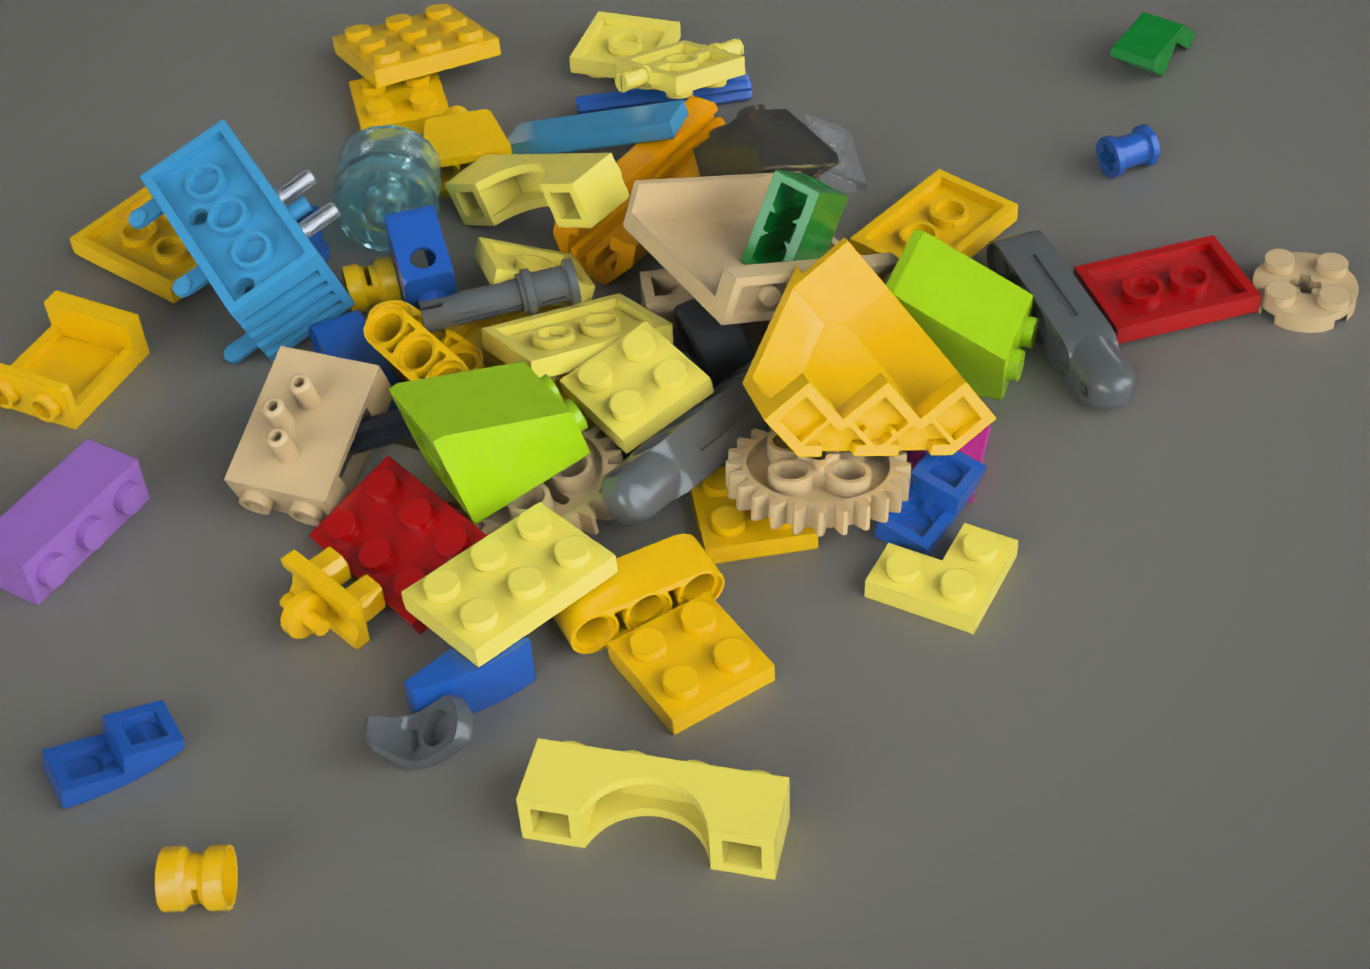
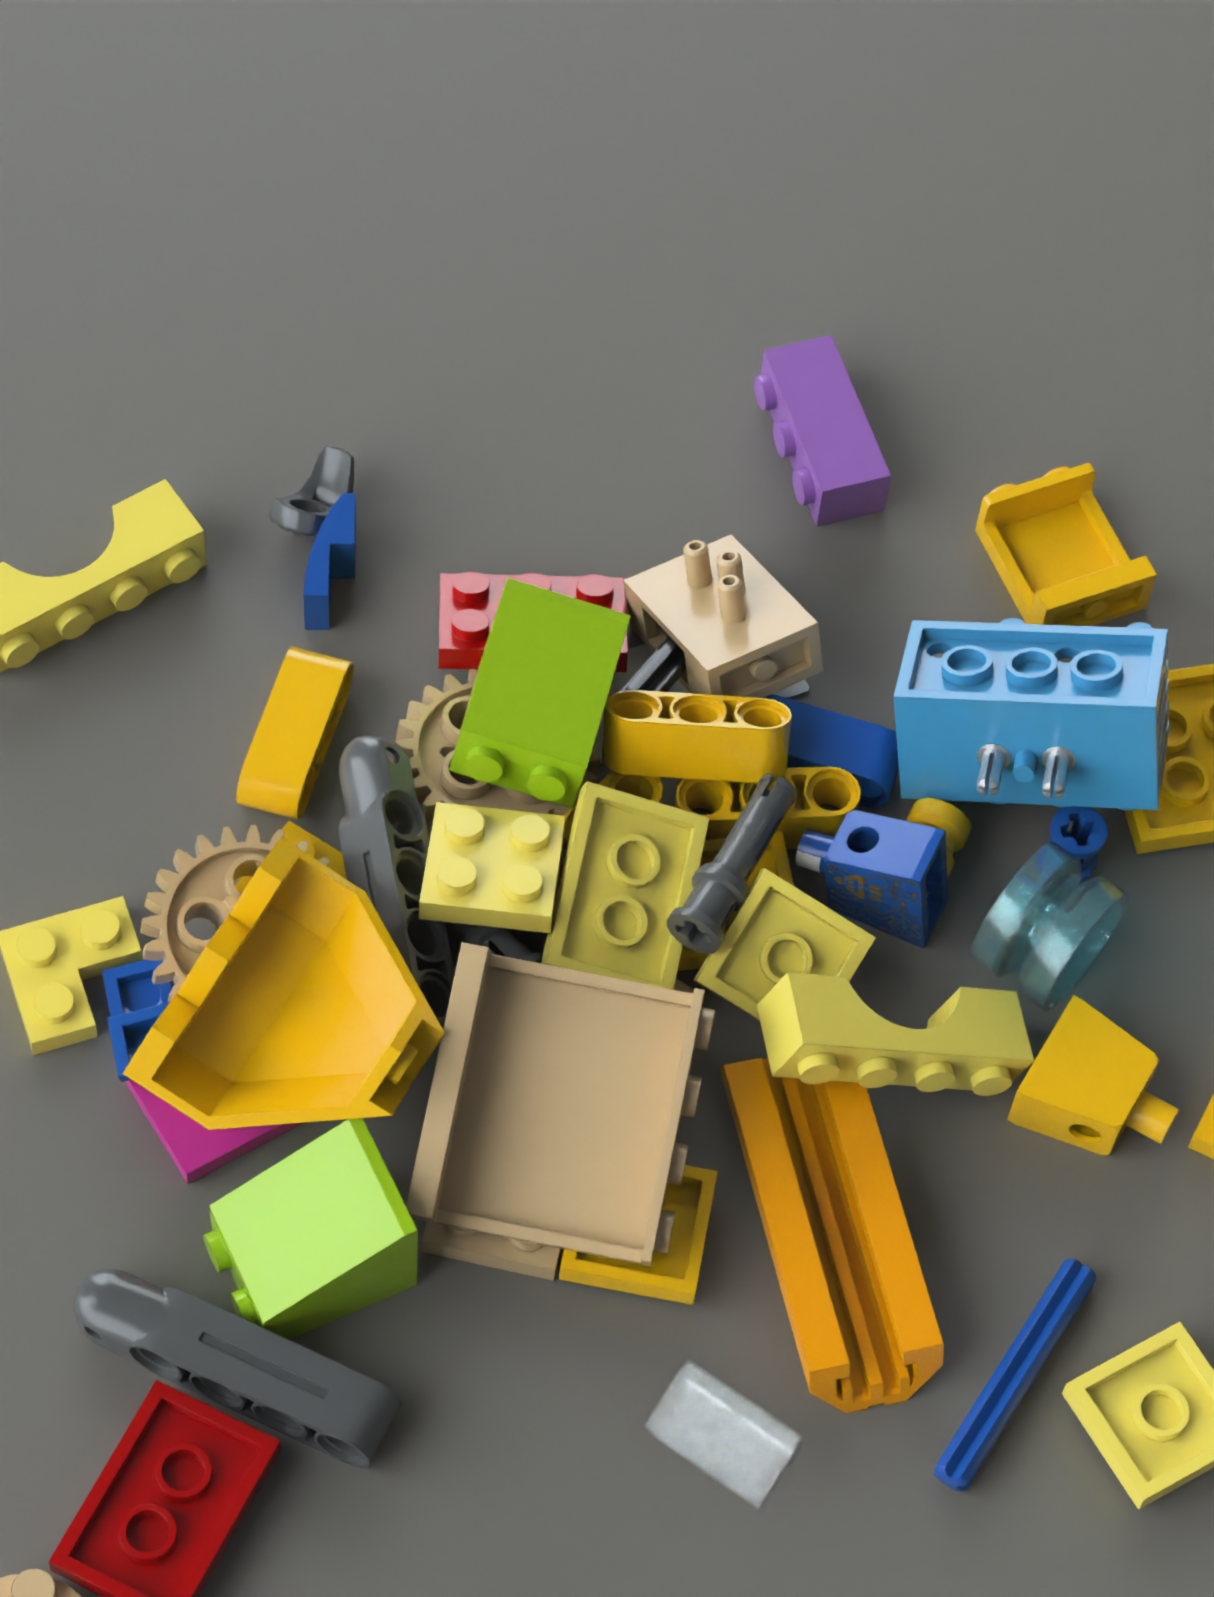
camera: 125 degrees right, 15 degrees up
(128, 748) = (523, 328): blue slope -> none
(196, 878) = (335, 297): yellow wheel -> none
(321, 603) = (528, 531): yellow hips -> none
(509, 583) = (373, 621): light yellow plate -> none
(599, 129) = (980, 1208): dark azure tile -> none
(681, 67) = (1008, 1375): light yellow plate -> none
(691, 662) = (192, 724): yellow plate -> none
(761, 143) = (713, 1260): clear smoke slope -> none
(796, 217) = (534, 1118): green torso -> none
(944, 208) = (489, 1396): yellow plate -> none

